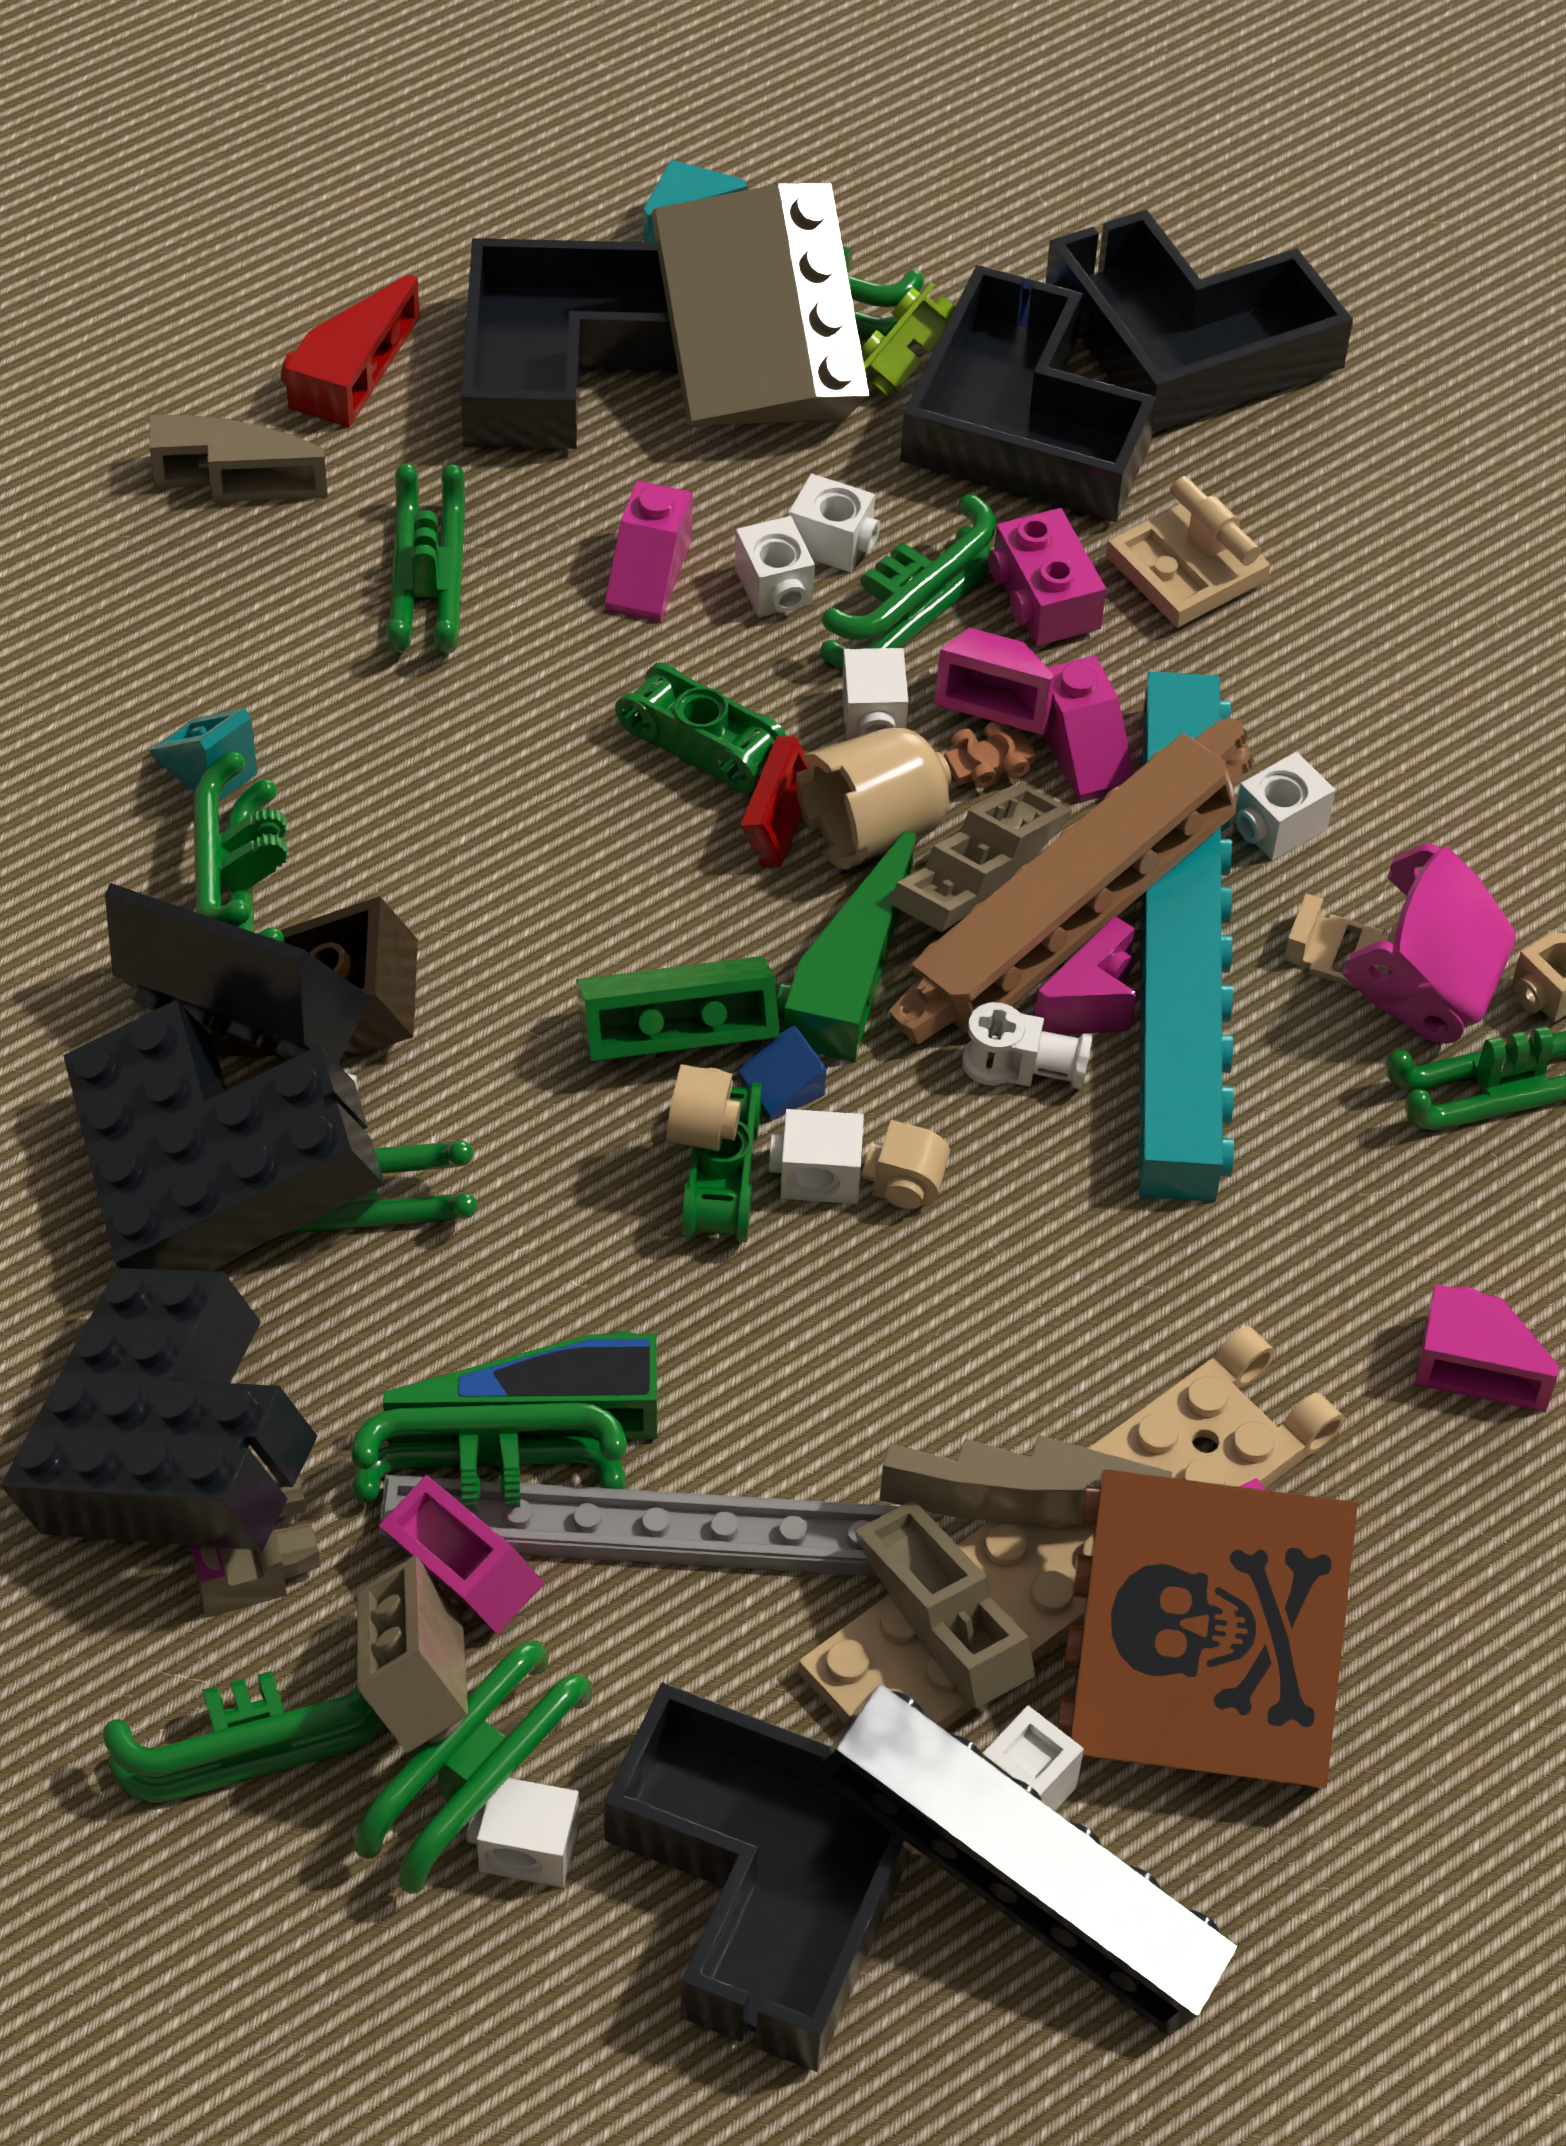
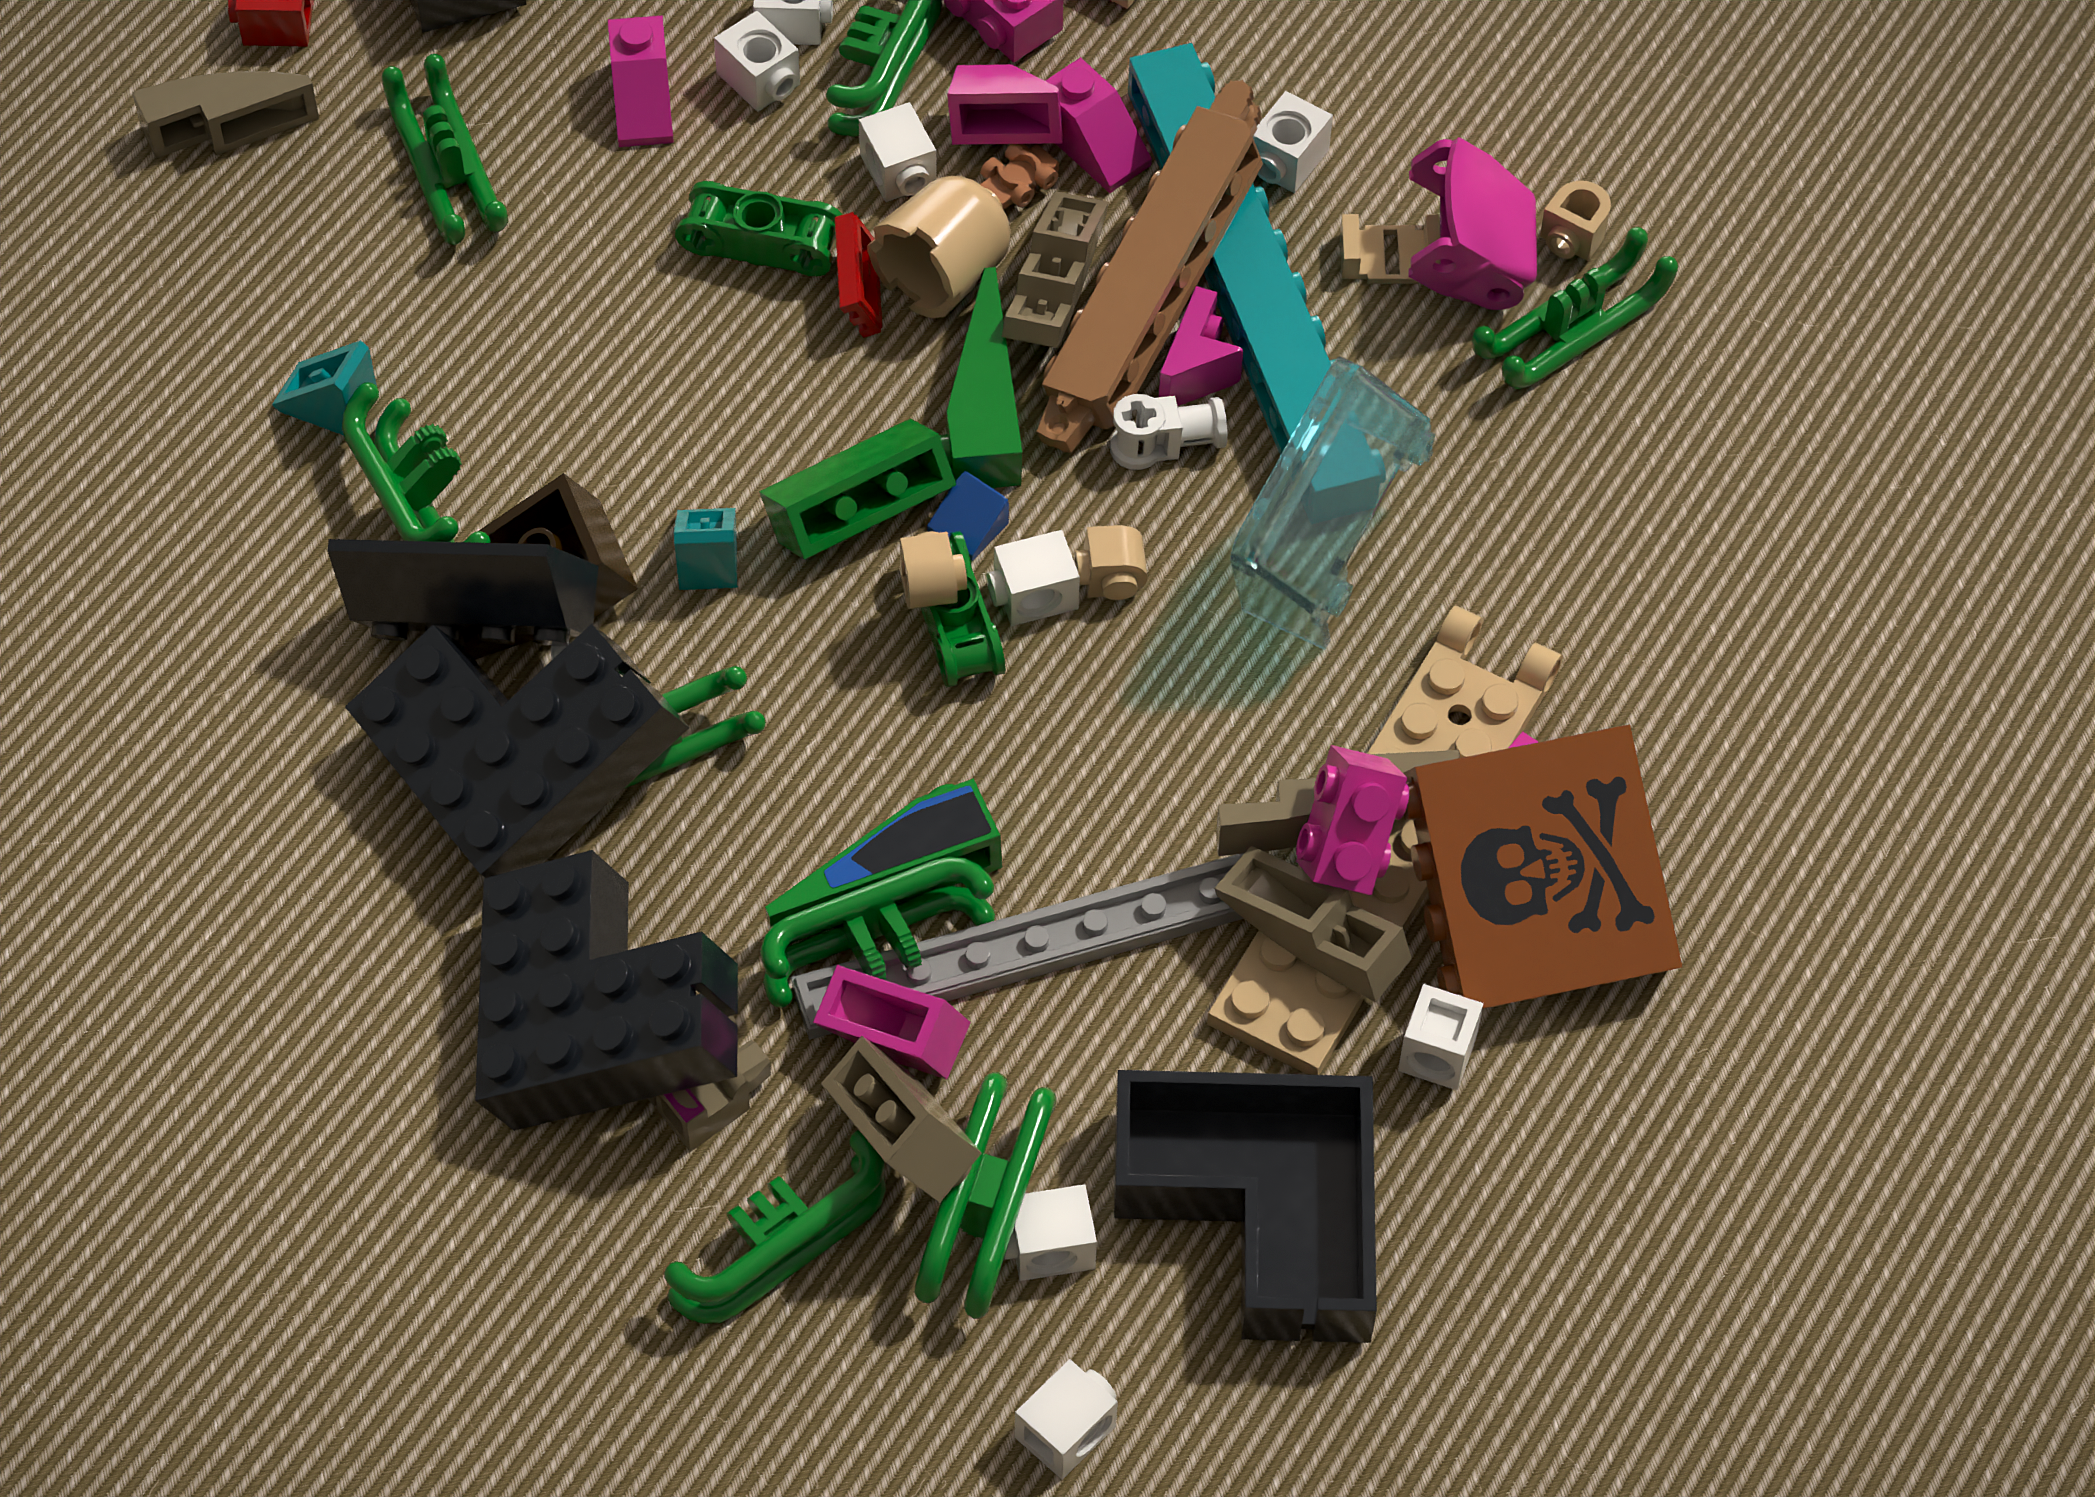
camera: 20 degrees left, 5 degrees up
(454, 2032) = (1067, 1417): none -> white brick
(501, 1019) = (706, 548): none -> teal slope
(1026, 1859) = (1475, 1109): brick -> none
(1027, 1490) = (1352, 820): none -> dark pink brick
(1134, 1158) = (1322, 498): none -> clear light blue windscreen
(1483, 1351) = (1649, 562): dark pink slope -> none

